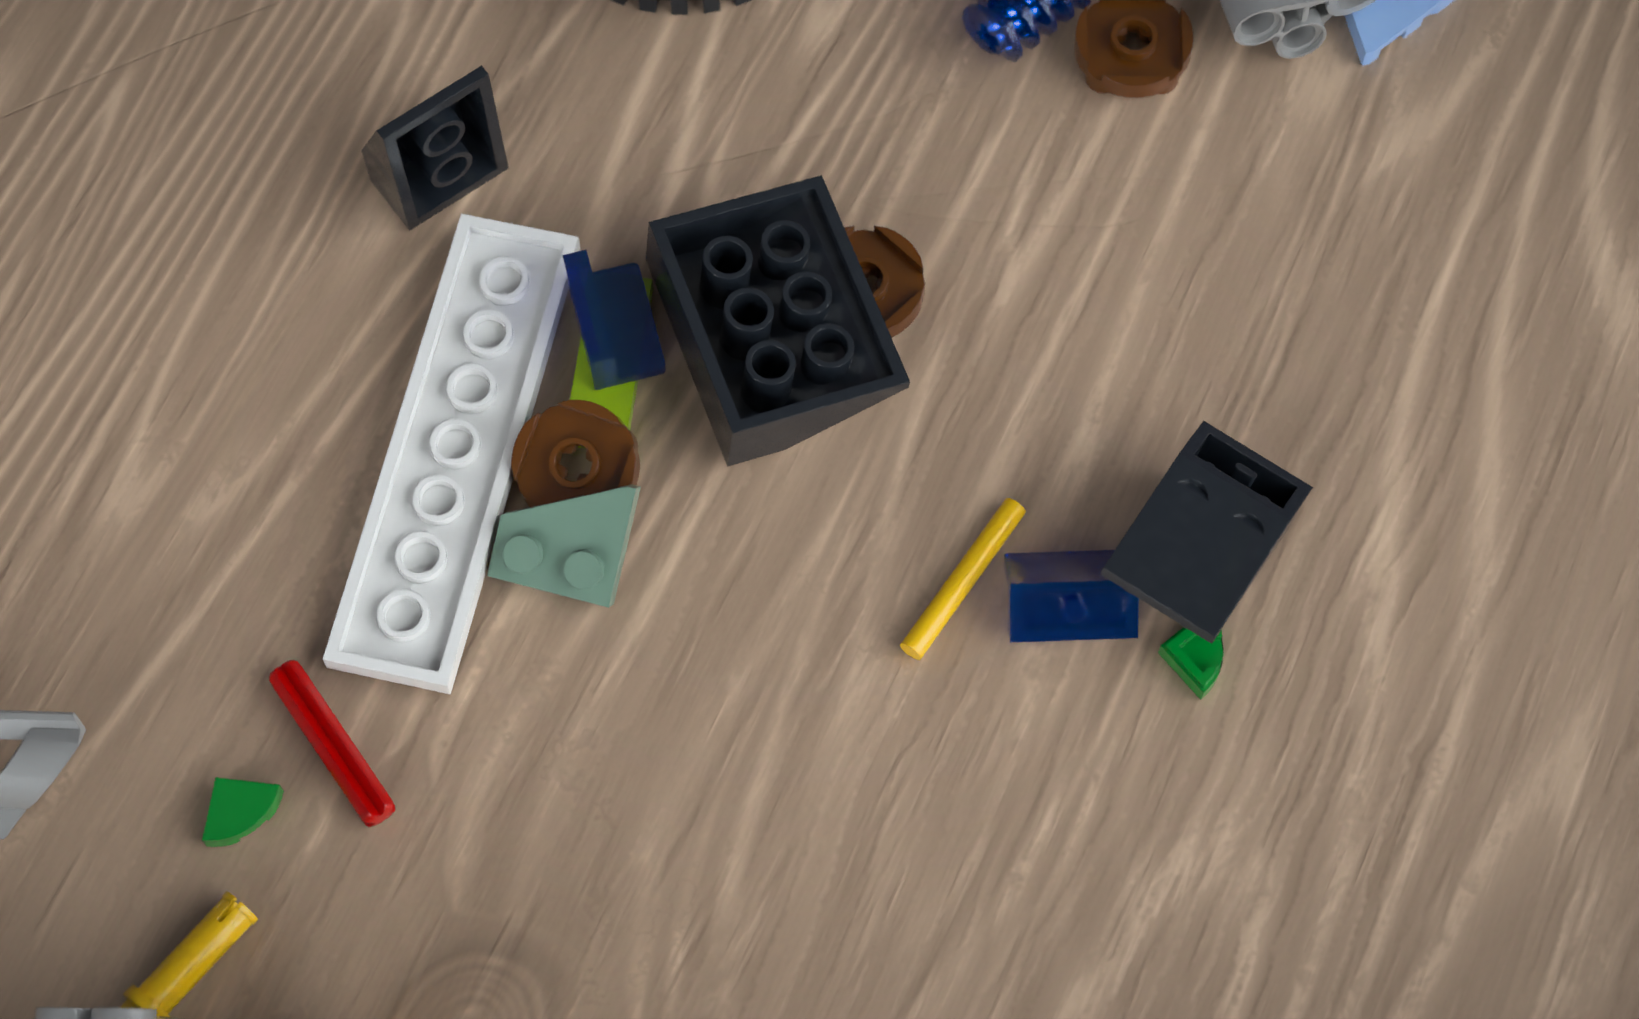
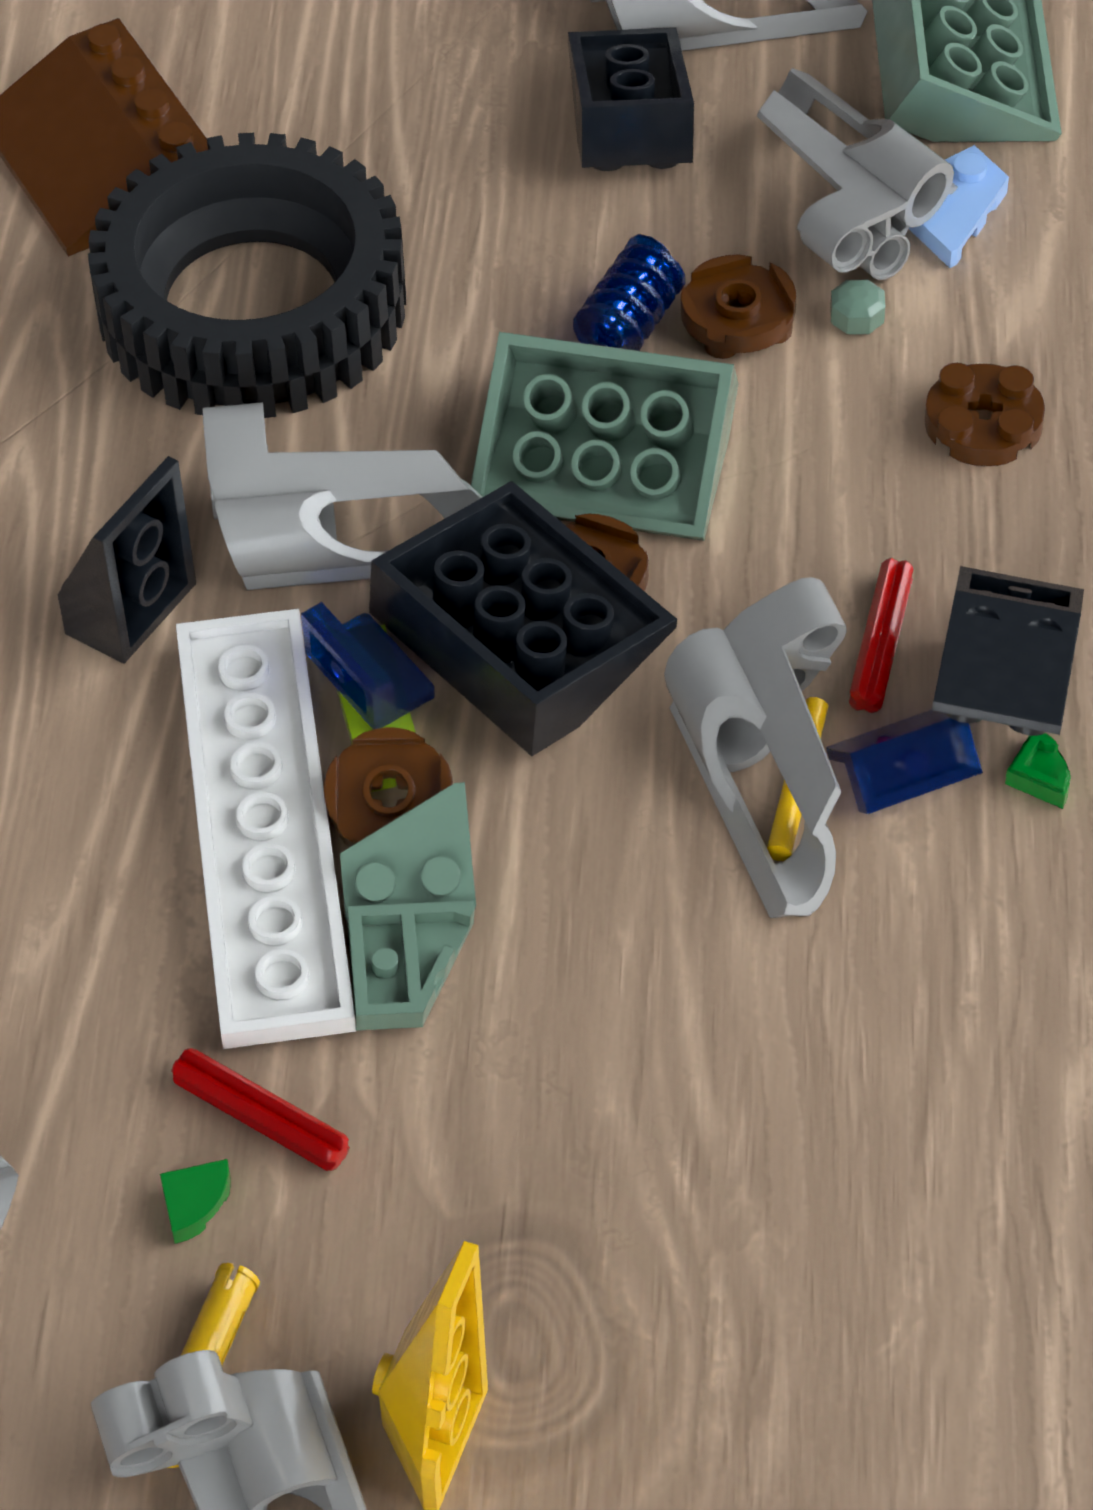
camera: 20 degrees left, 15 degrees down
(518, 639) = (403, 959): none -> sand green wing
(602, 130) = (281, 505): none -> light grey panel
(936, 493) = (744, 698): none -> light grey panel
(938, 150) = (607, 432): none -> sand green slope
(1109, 453) = (881, 635): none -> red axle
(1248, 82) = (857, 306): none -> sand green tile
(1327, 212) = (1003, 390): none -> reddish brown plate

